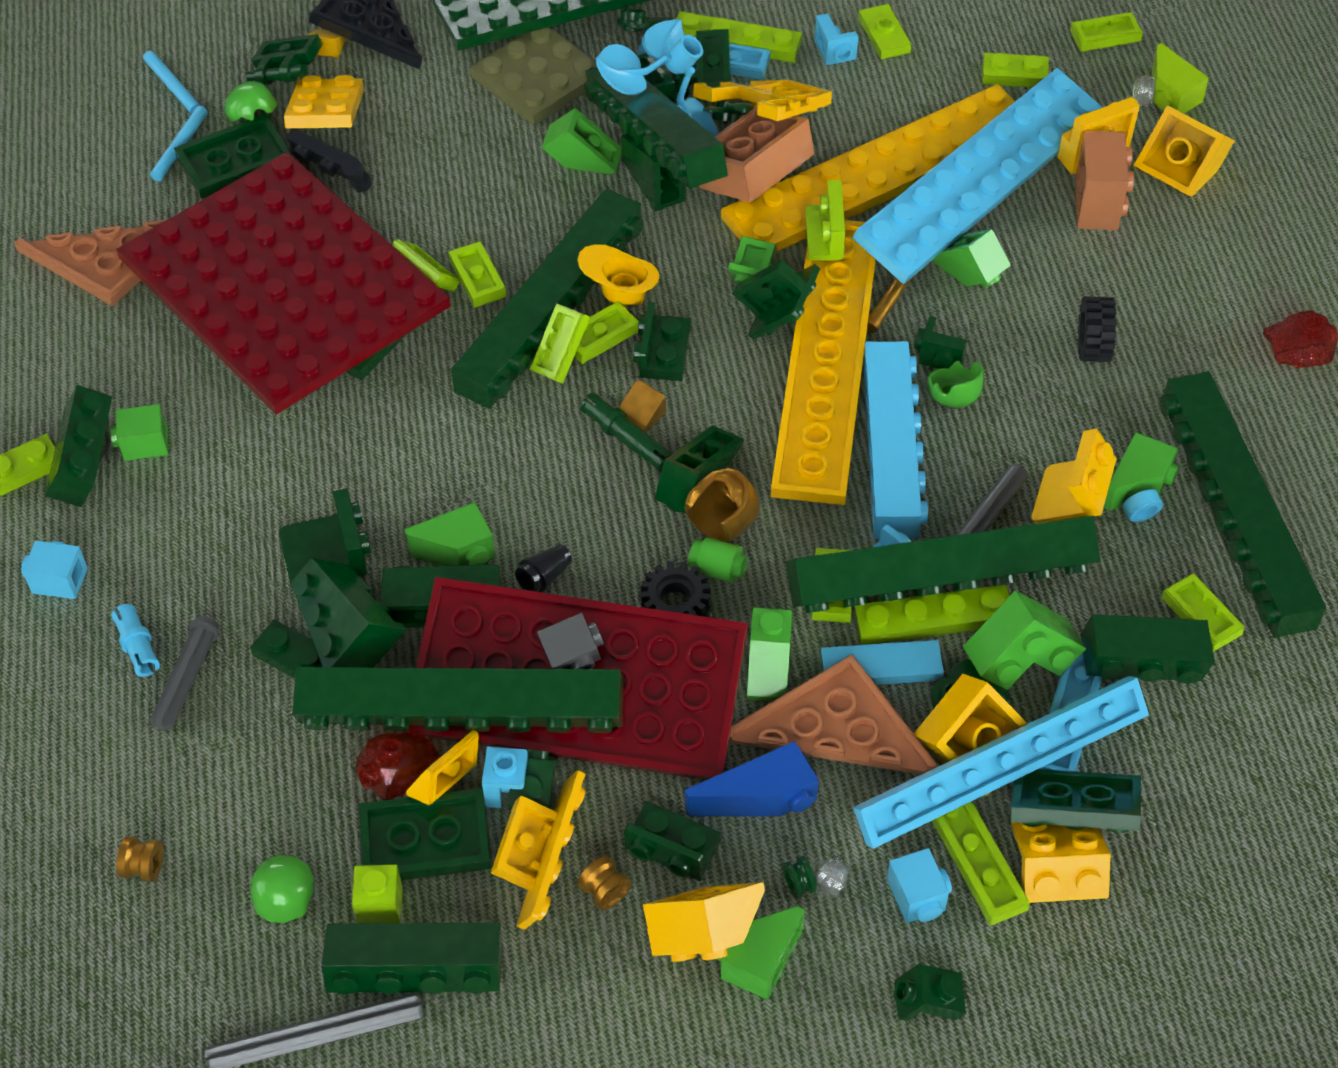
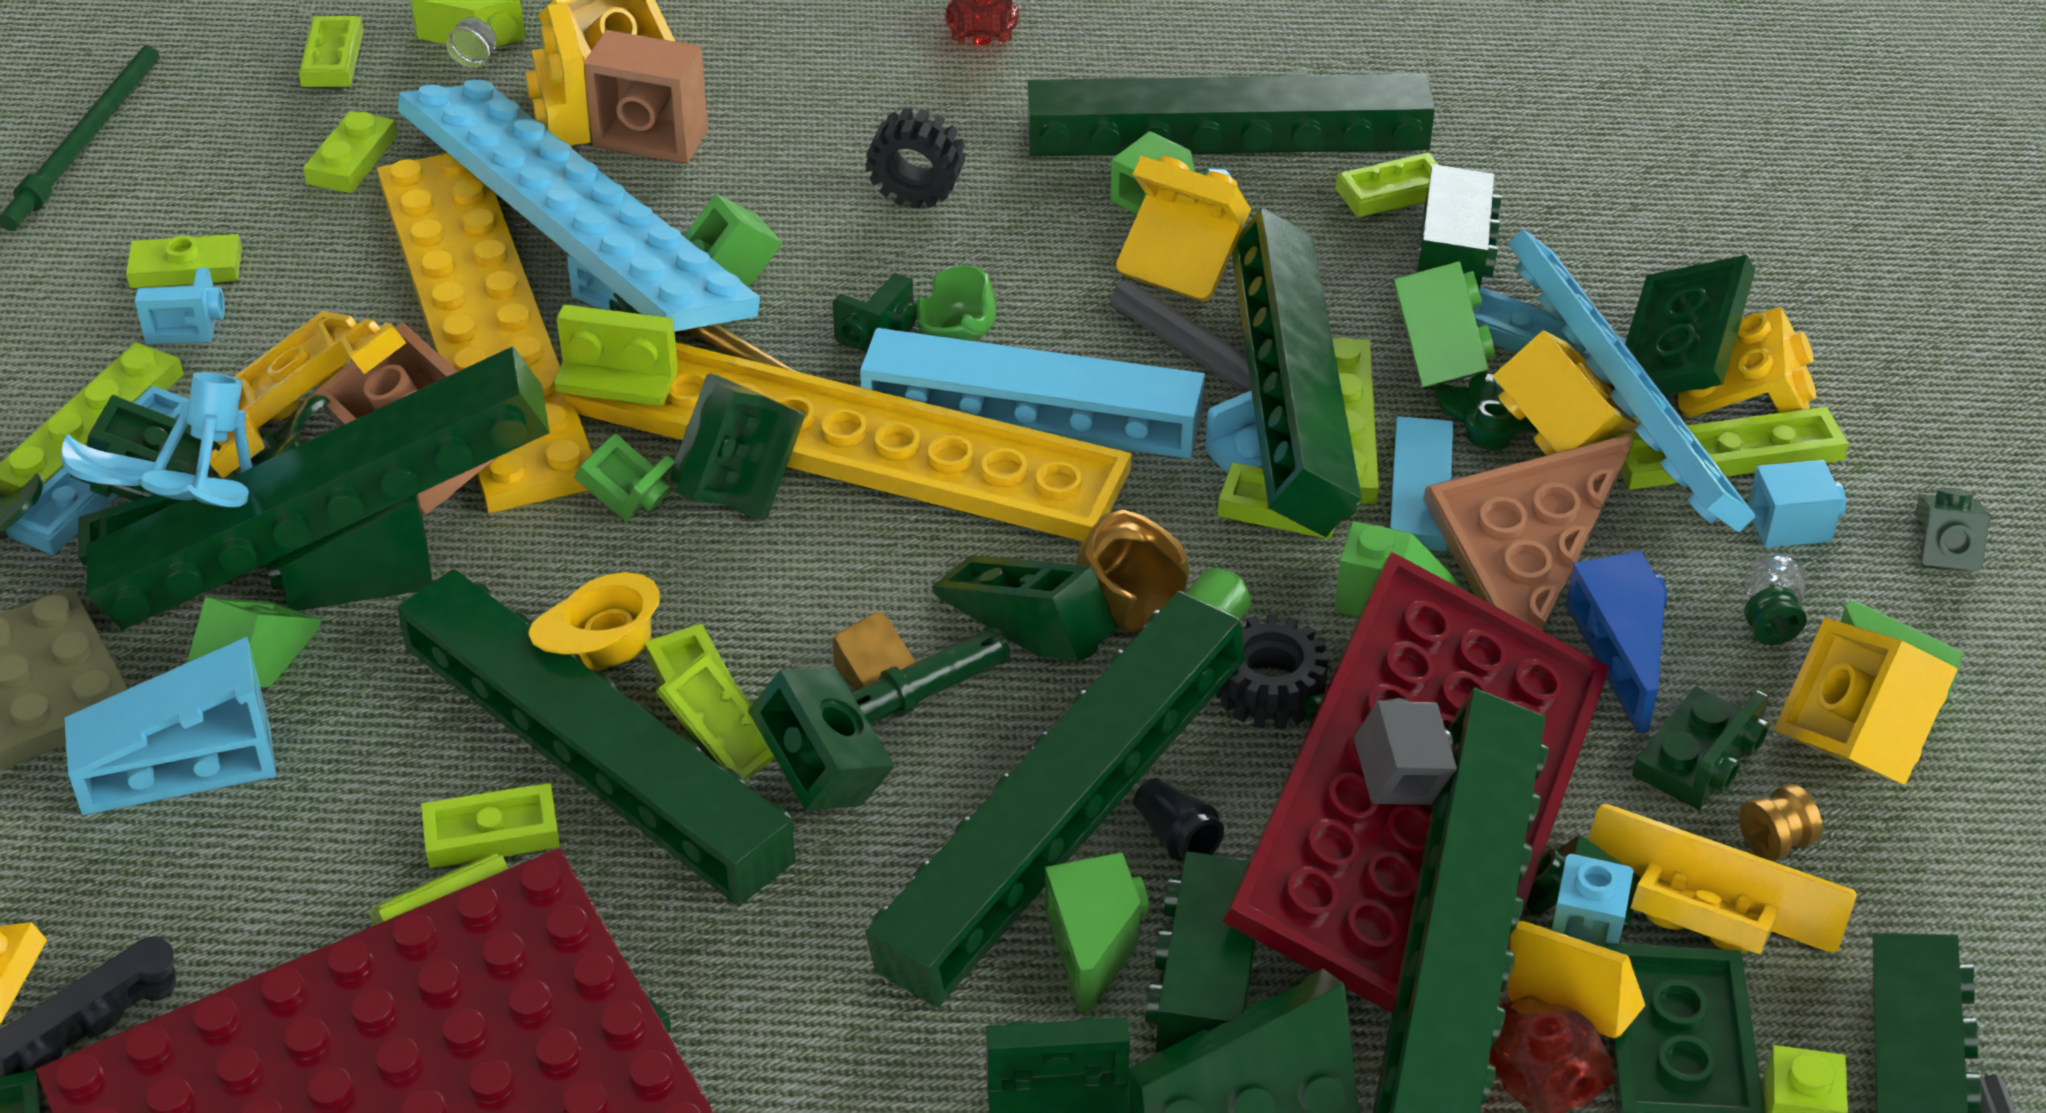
camera: 80 degrees left, 10 degrees down
(503, 137) = (173, 735): none -> medium azure wedge
(540, 503) = (1054, 799): none -> dark green brick
(562, 368) = (820, 738): none -> dark green brick
(662, 346) = (750, 613): dark green bracket -> none

